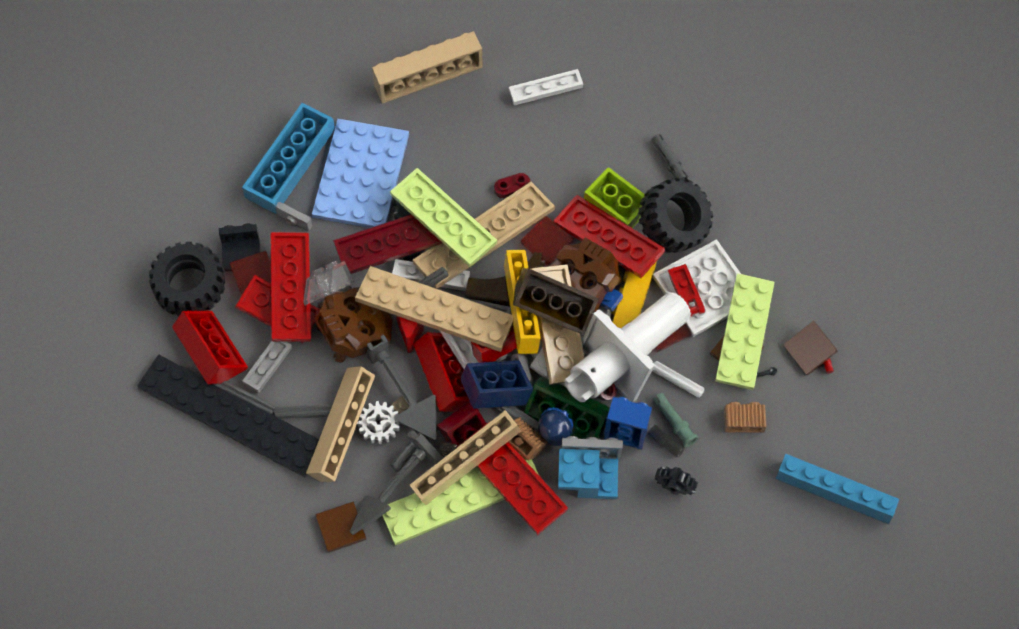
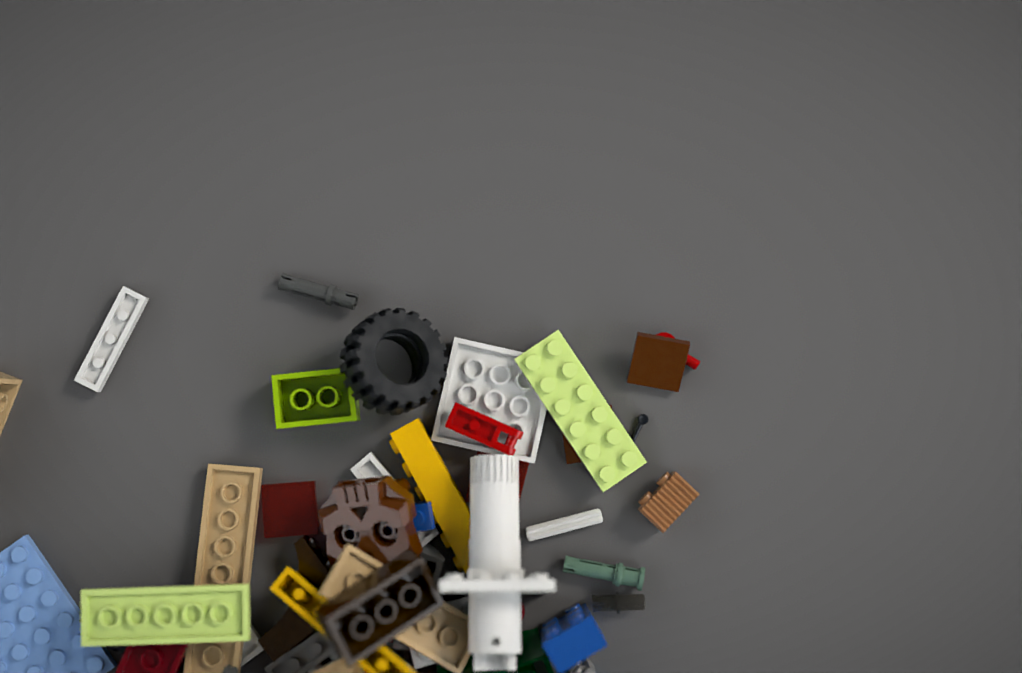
camera: 50 degrees left, 20 degrees up
(511, 183) = (192, 485): dark red plate -> none
(628, 246) = (349, 449): red plate -> none
(676, 480) = (672, 642): black gear -> none
(837, 489) = (822, 485): dark azure brick -> none

